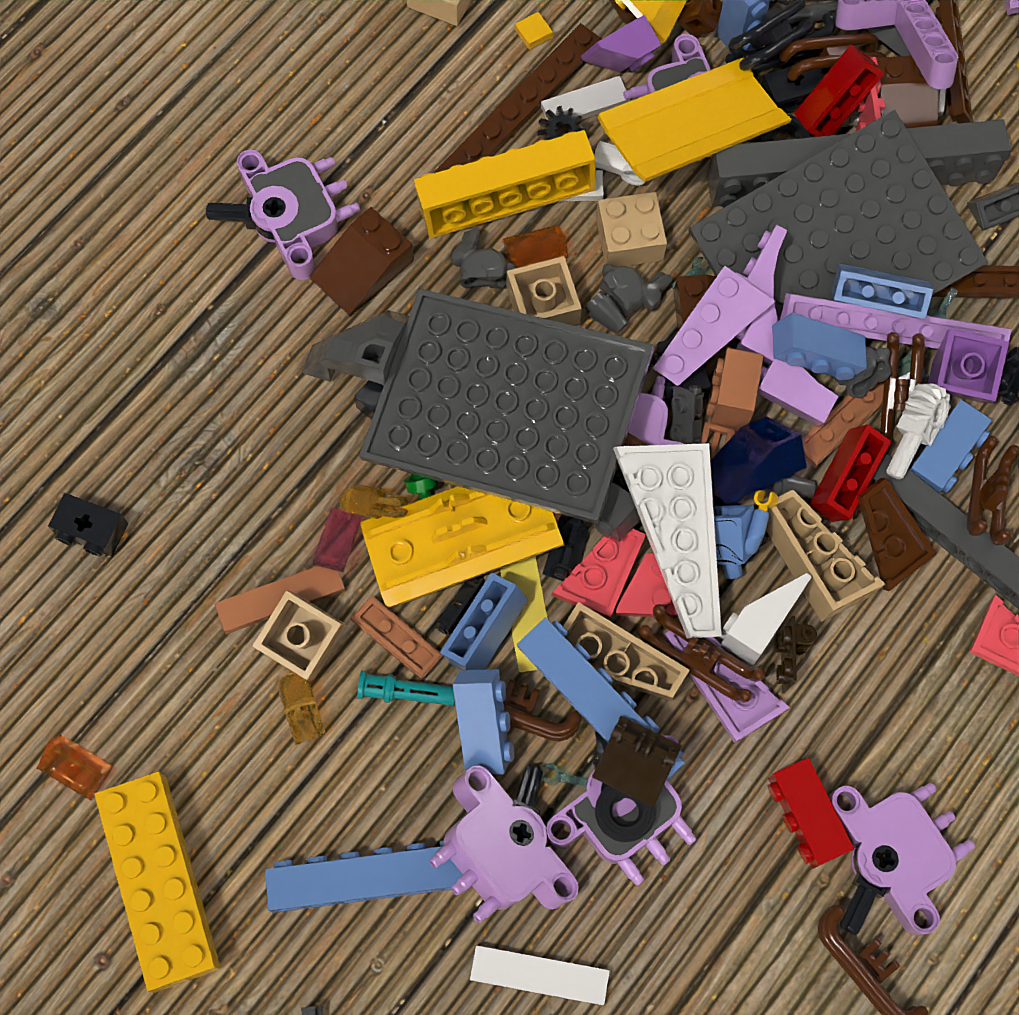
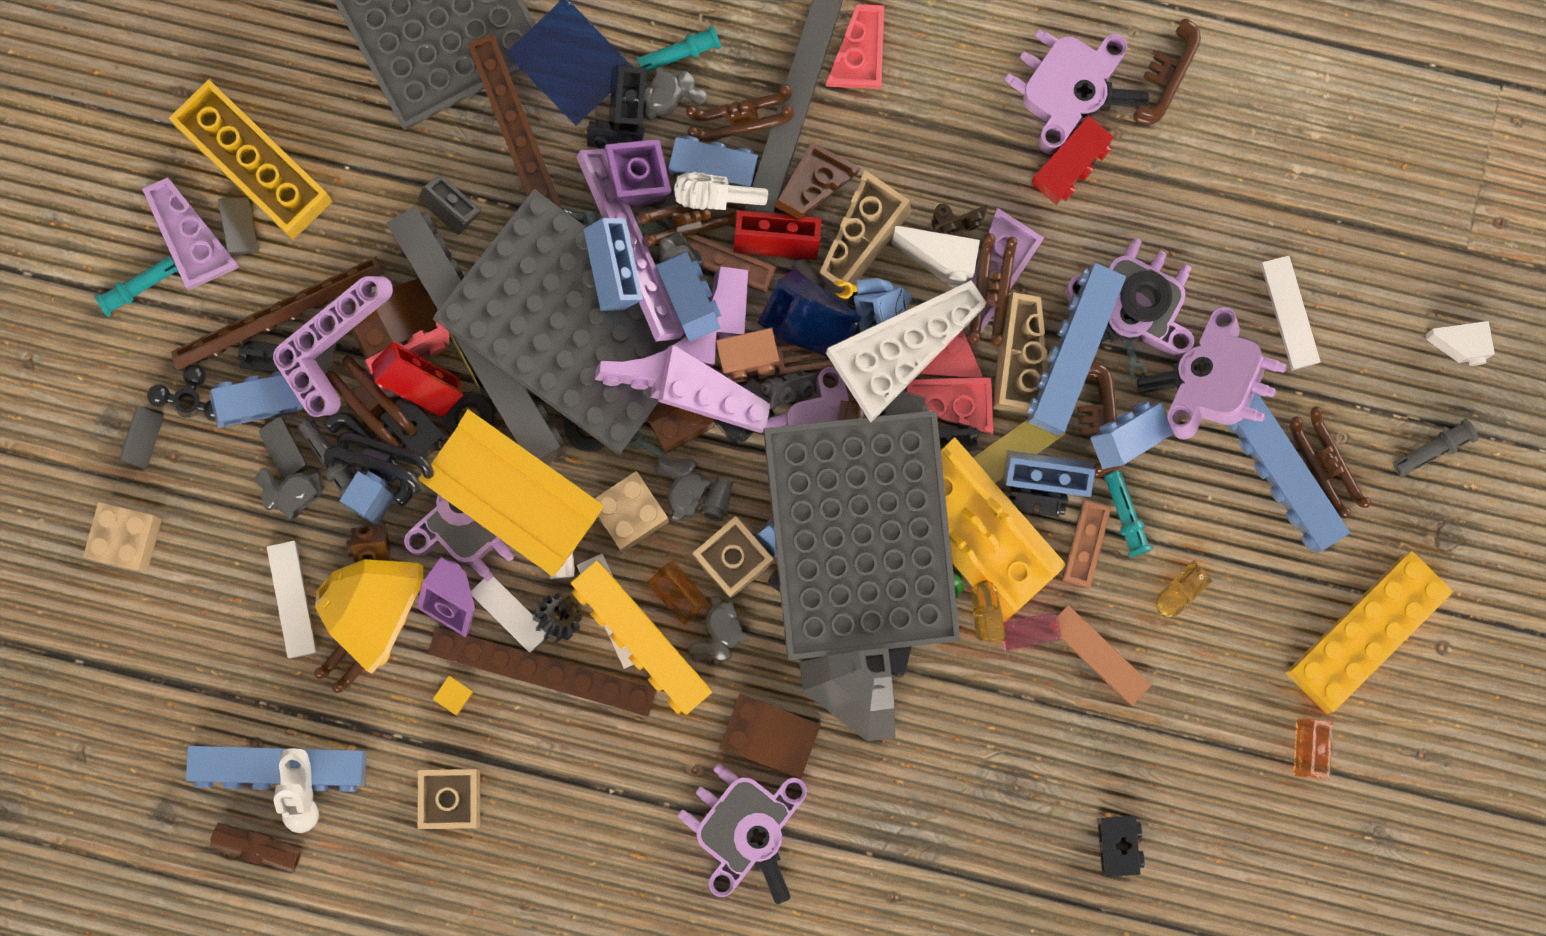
camera: 115 degrees left, 10 degrees up
(299, 635) = (1129, 616): tan brick -> none
(354, 932) = (1327, 463): none -> reddish brown piece
(636, 761) = (1112, 297): dark brown hinge -> none

